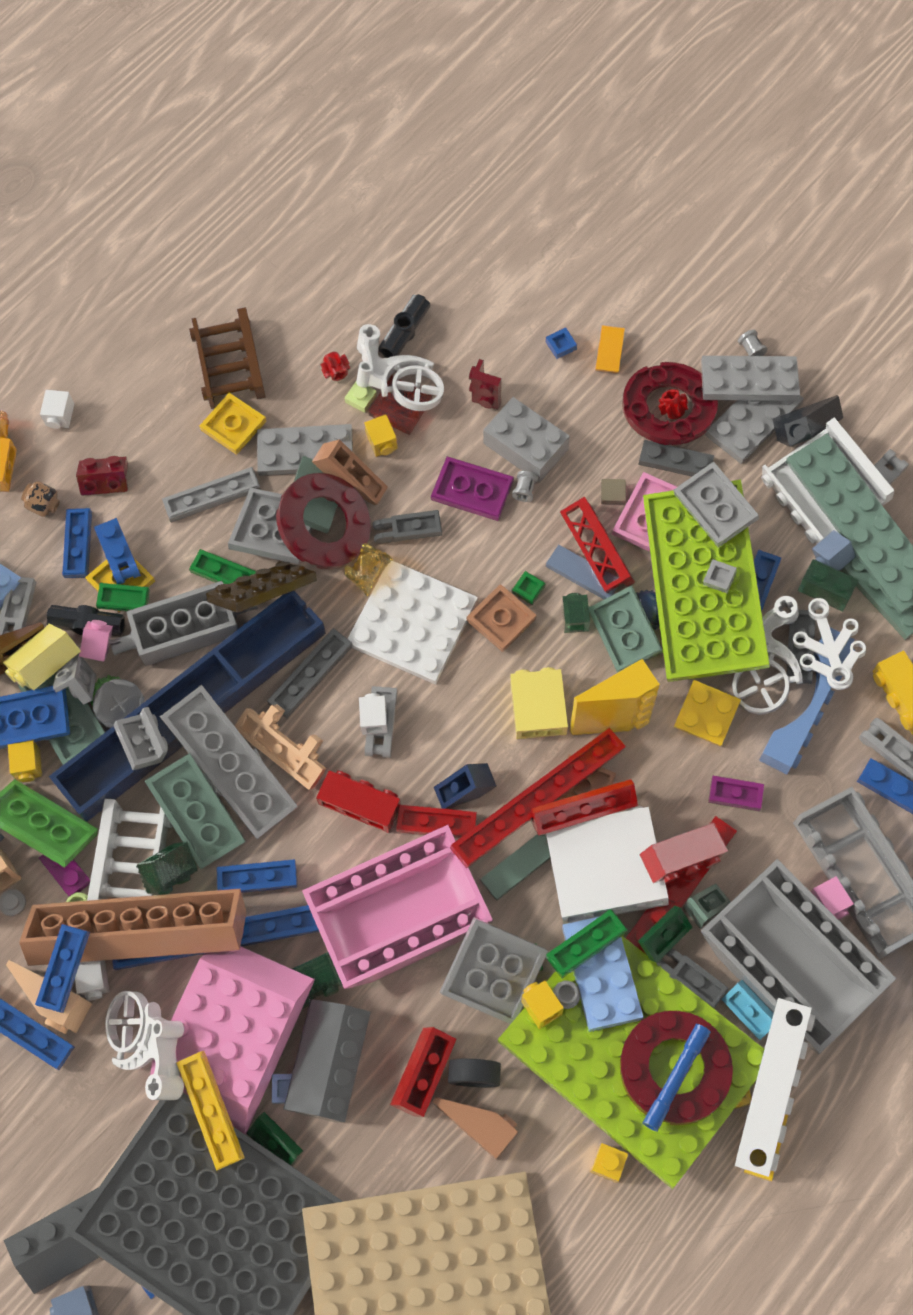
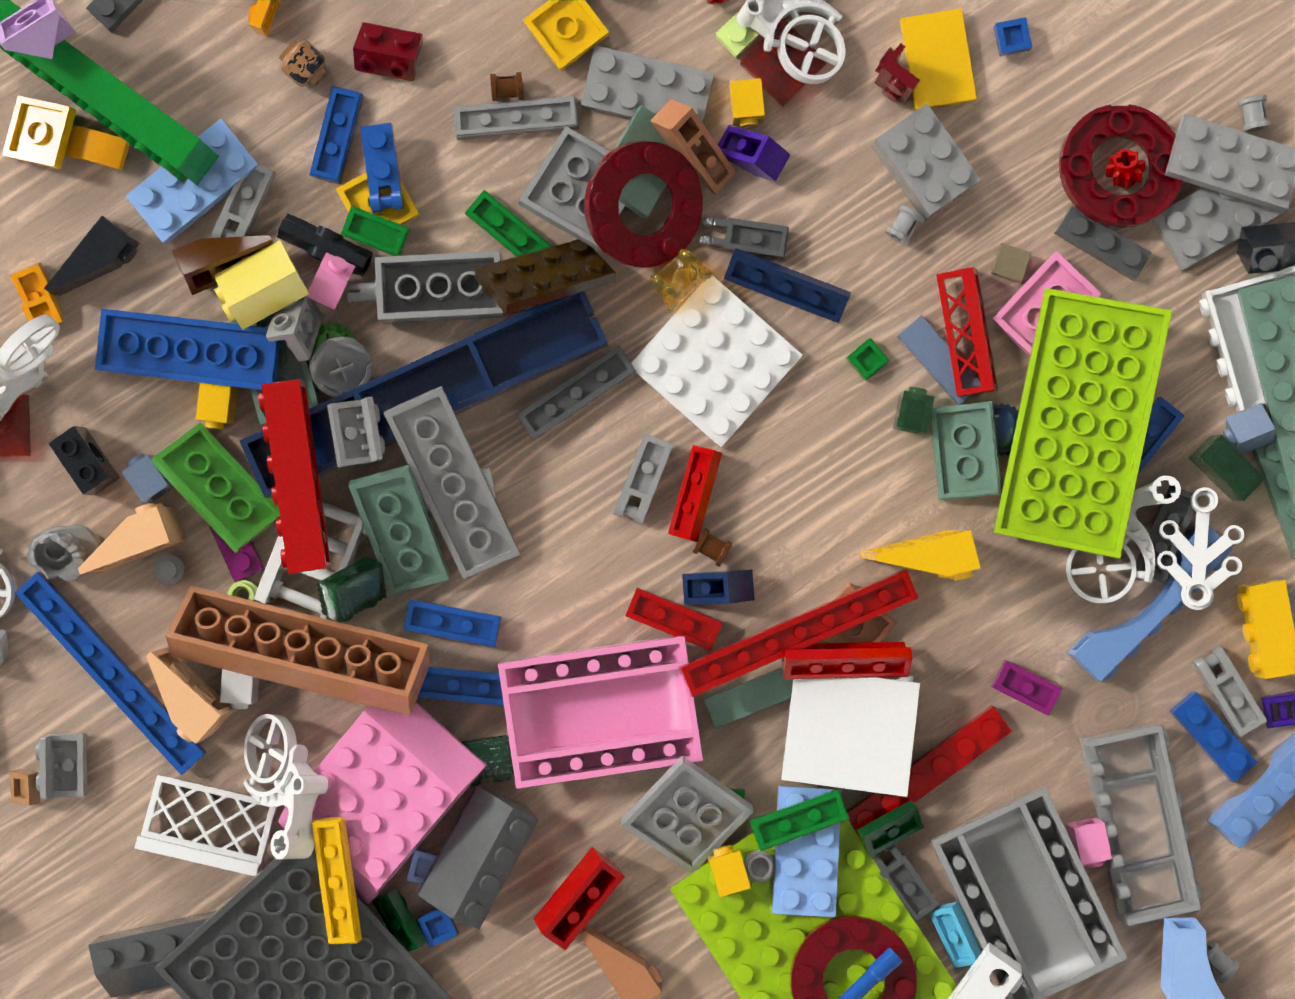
camera: 15 degrees right, 20 degrees up
(62, 968) = (207, 683): blue tile -> none
(83, 1133) = (199, 852): none -> white fence
(101, 788) = (295, 476): none -> red brick
(199, 473) = (506, 86): none -> reddish brown bush
(296, 760) = (532, 497): light nougat hinge -> none
(309, 1136) = (437, 927): none -> blue plate
(359, 800) = (592, 568): red brick -> none
(373, 714) = (636, 473): white brick -> none
(397, 467) = (753, 152): none -> dark purple slope
(425, 720) = (695, 493): none -> red plate
(449, 551) = (787, 285): none -> dark blue plate
(450, 757) = (712, 547): none -> reddish brown bush
(472, 488) = (839, 206): magenta tile -> none
(474, 1073) = (633, 917): black tyre -> none
(501, 618) = (823, 390): nougat plate -> none
(516, 368) = (939, 58): none -> yellow tile
(538, 703) = (834, 511): light yellow brick -> none
(610, 349) = (1072, 63): light orange slope -> none
(683, 854) = (941, 753): brick -> none
(706, 905) = (949, 806): sand green slope -> none
(707, 713) = (1027, 582): yellow plate -> none
(716, 504) = (1129, 336): light grey plate -> none
(720, 576) = (1101, 431): light grey plate -> none

